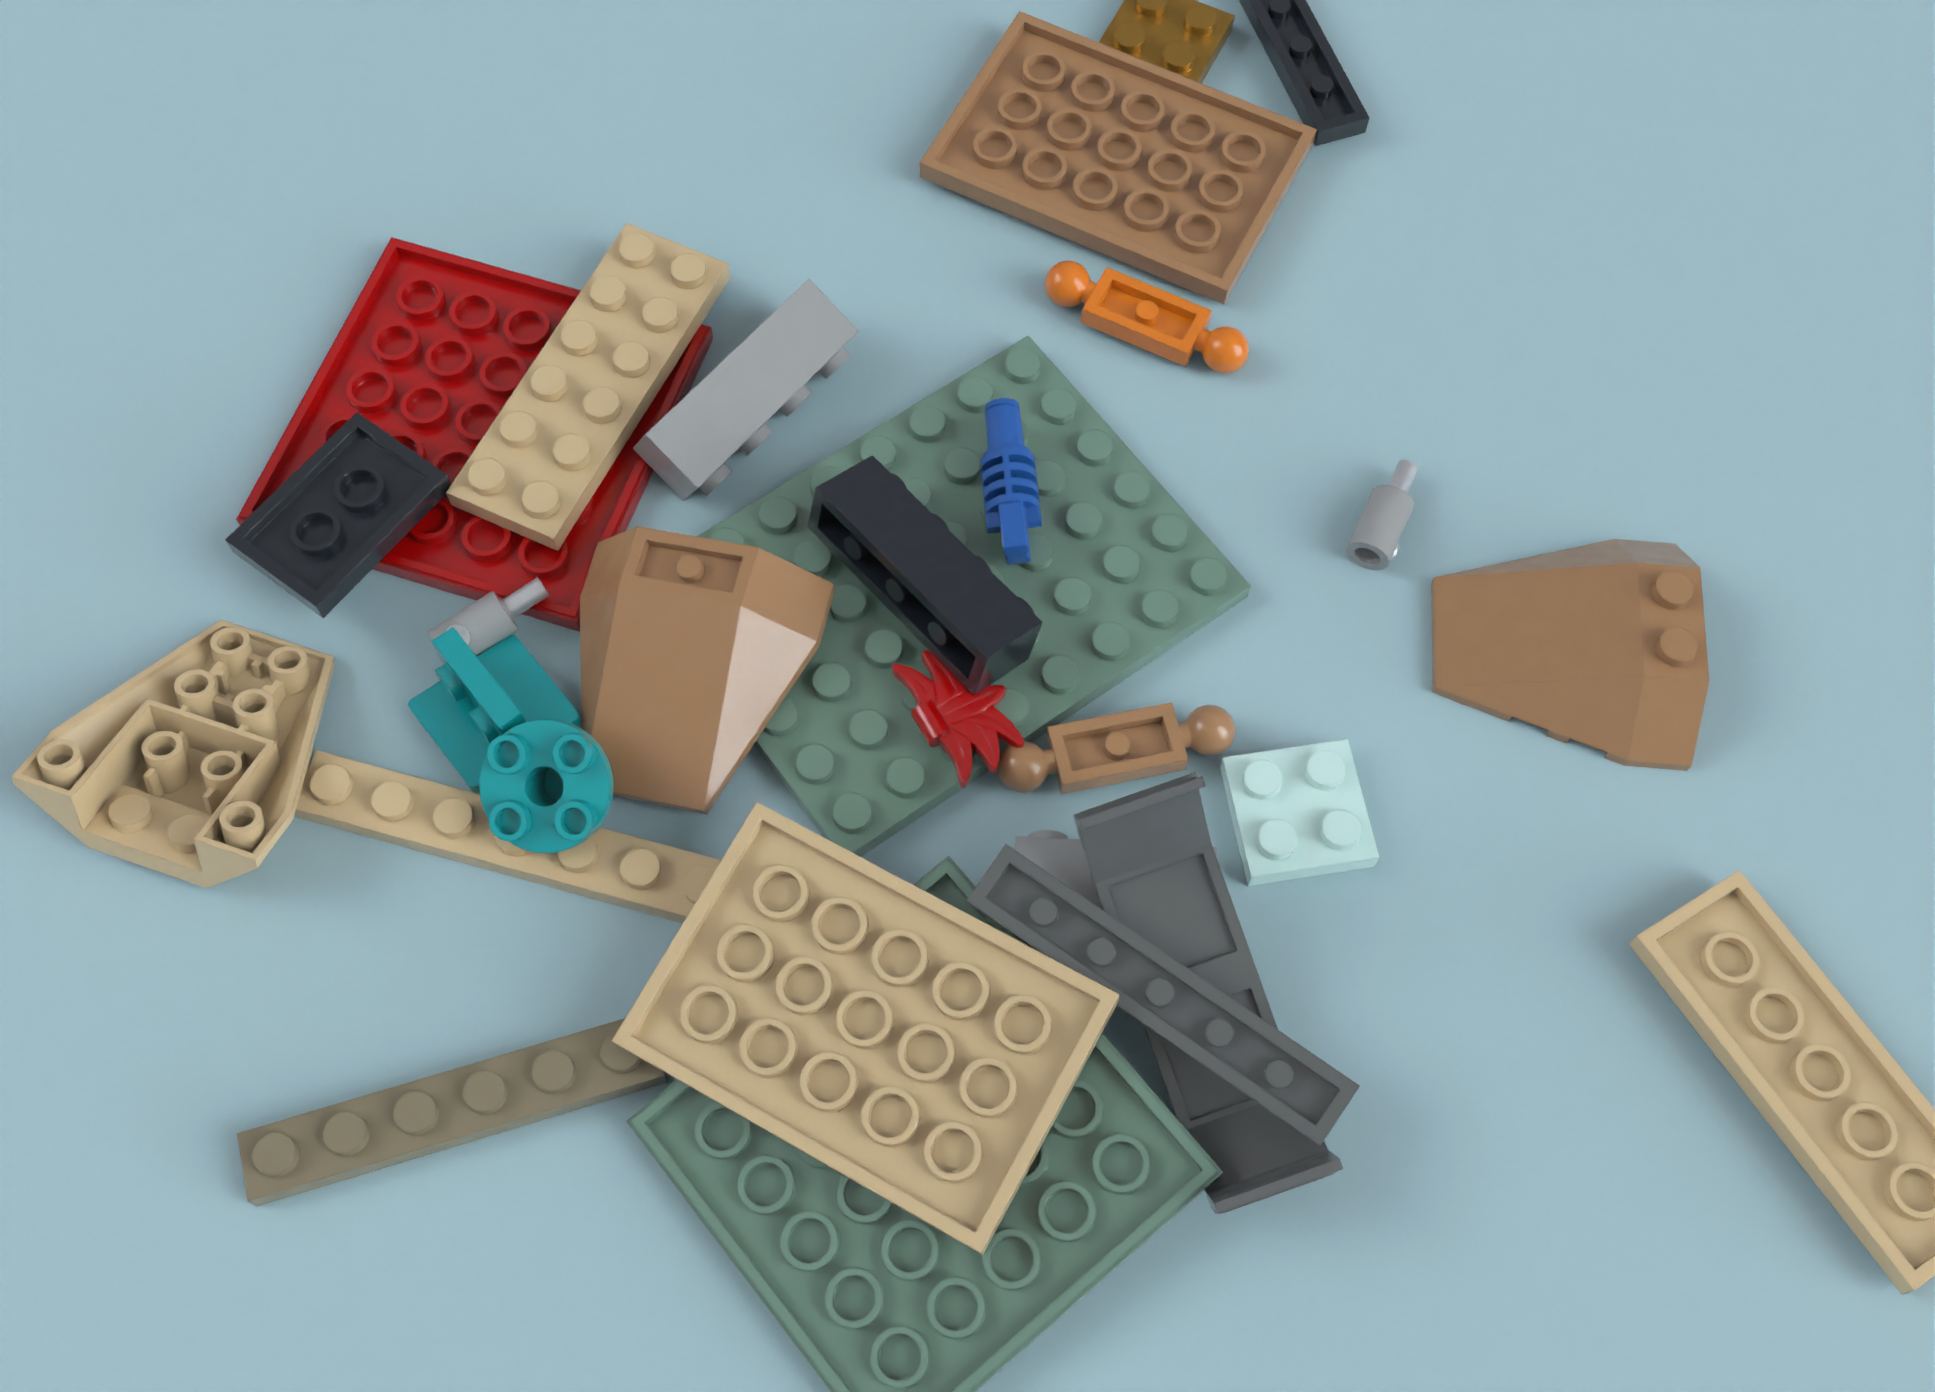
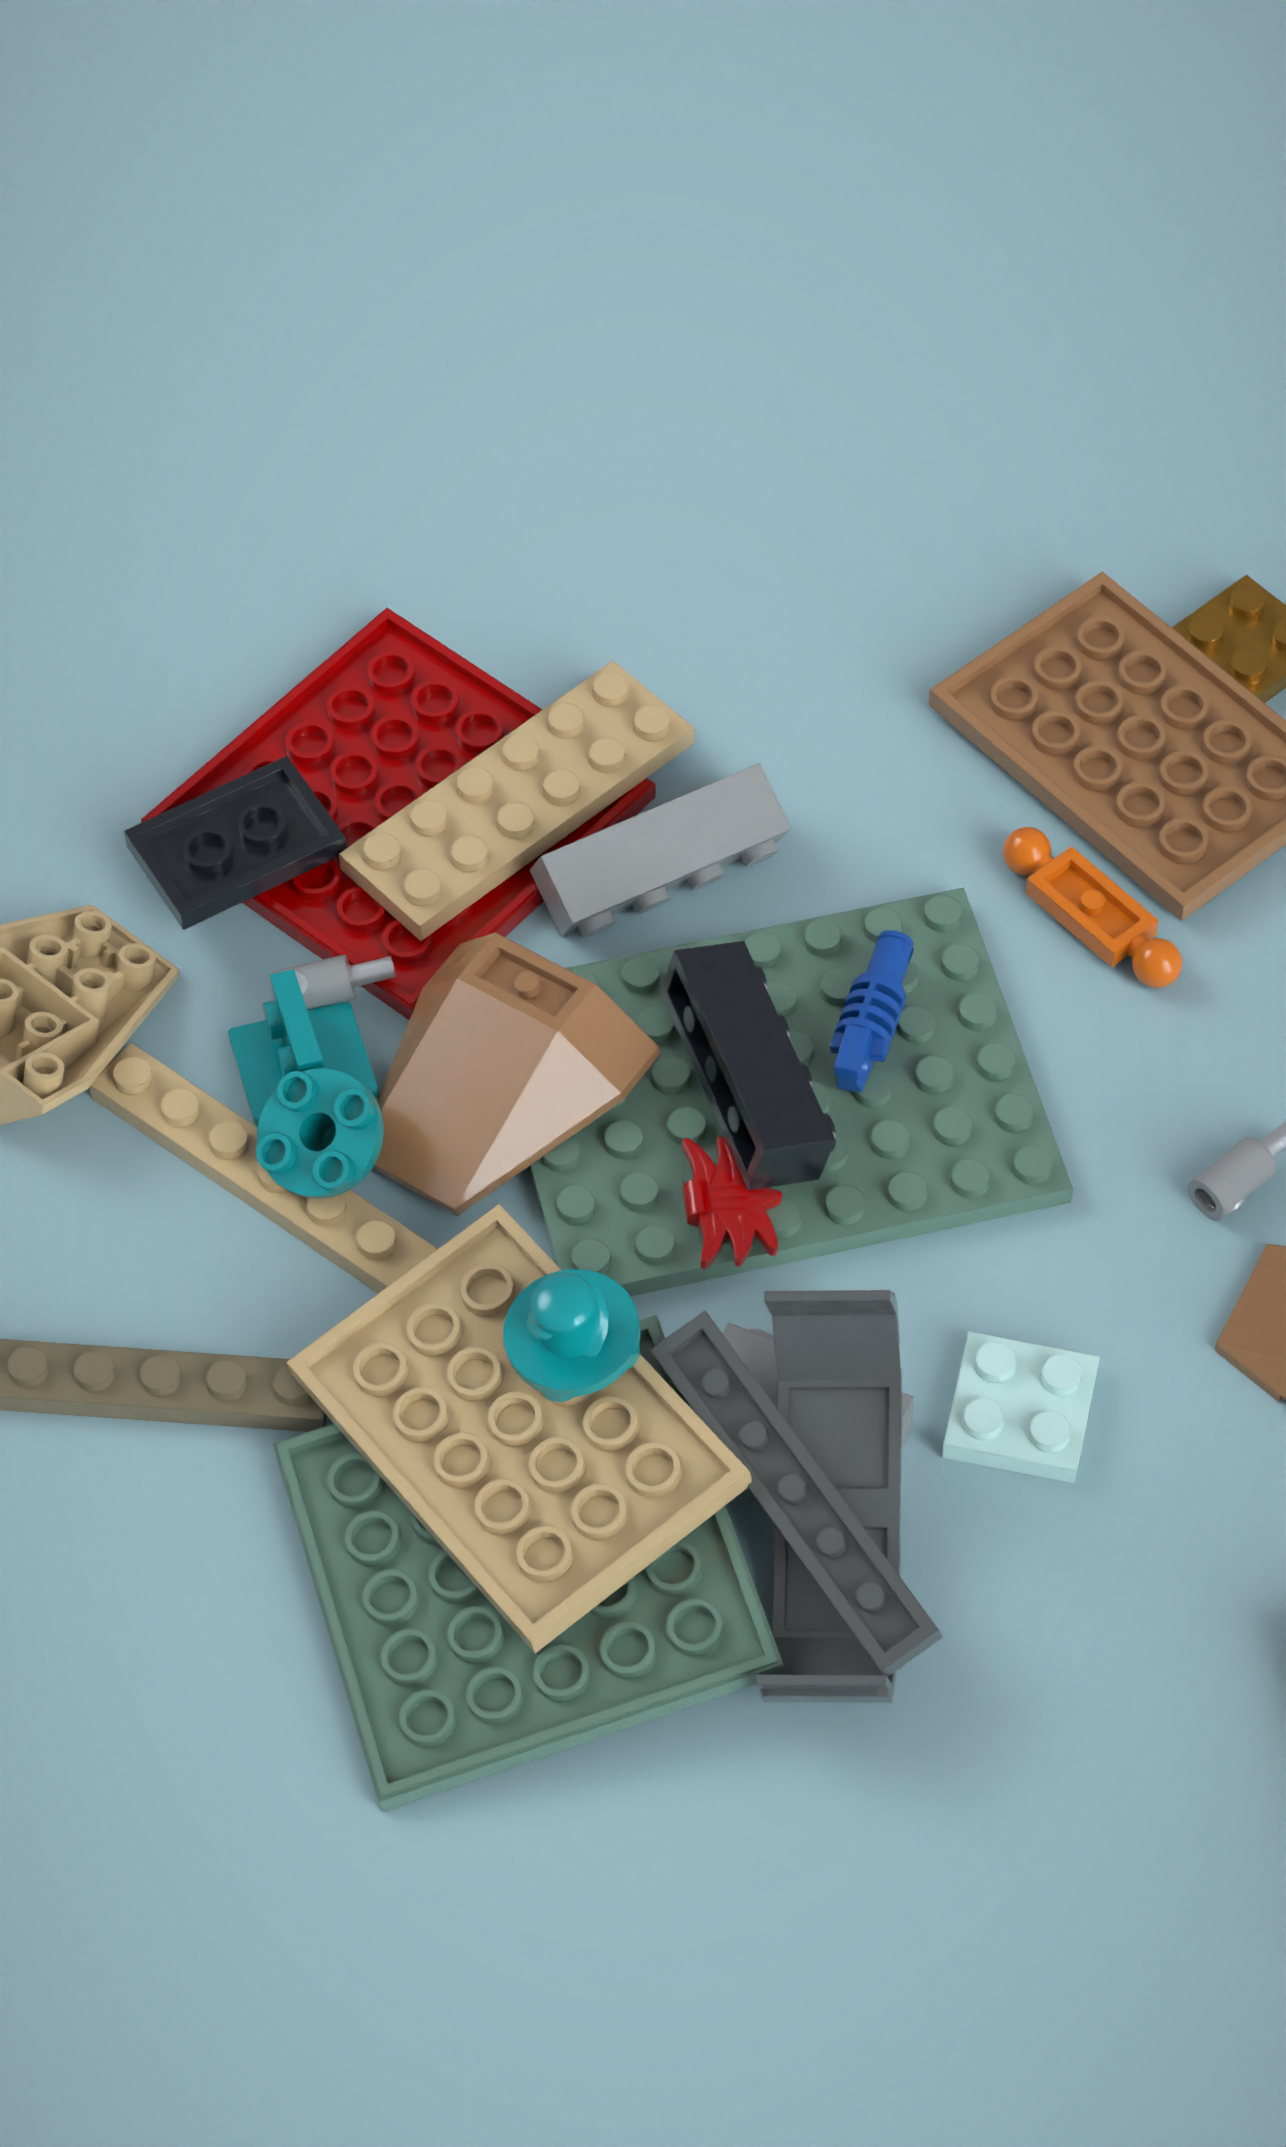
camera: 25 degrees right, 10 degrees down
(889, 916) = (572, 1333): none -> teal plate
(1116, 748) = (964, 1301): medium nougat plate -> none

